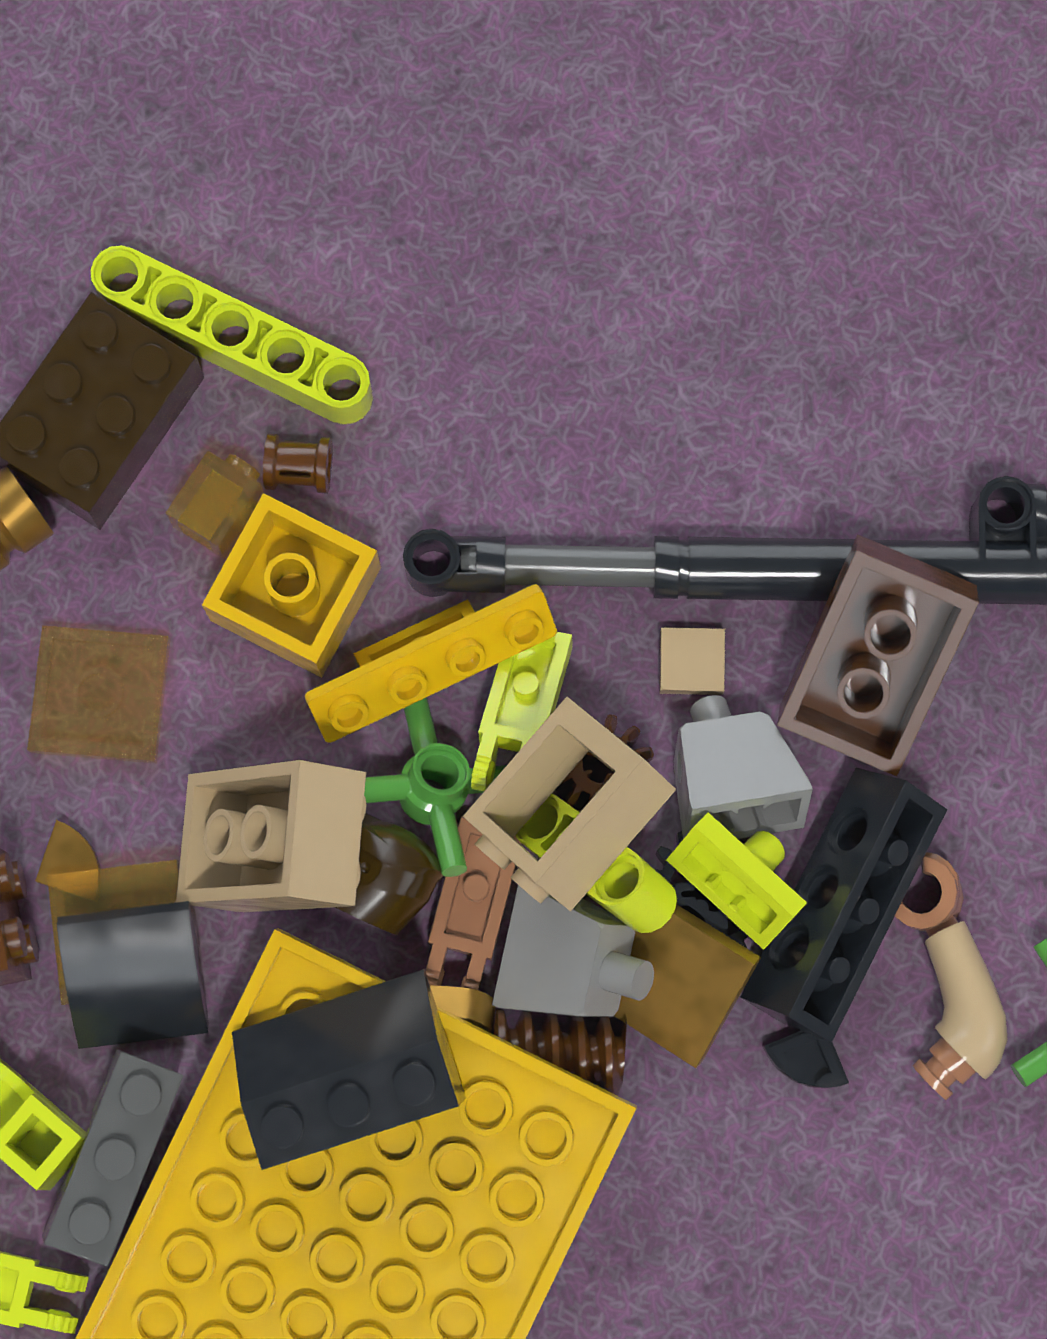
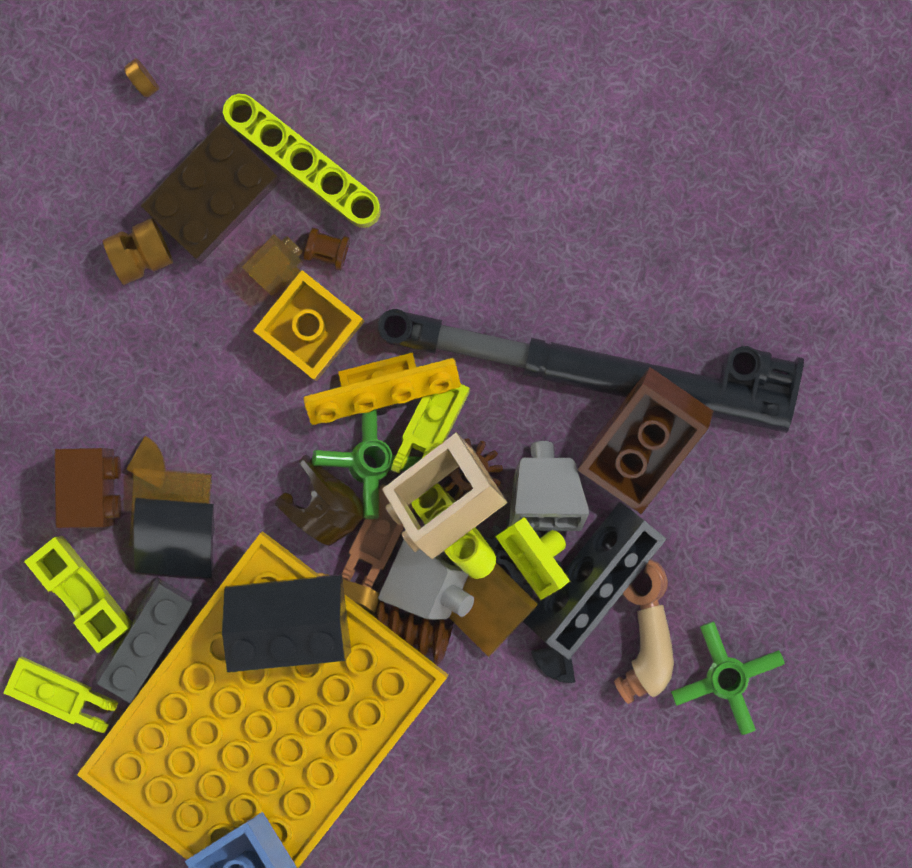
camera: 15 degrees right, 10 degrees up
(99, 694) = (183, 364): clear yellow tile -> none
(272, 837) = (268, 479): tan brick -> none
(692, 661) = (538, 416): tan tile -> none

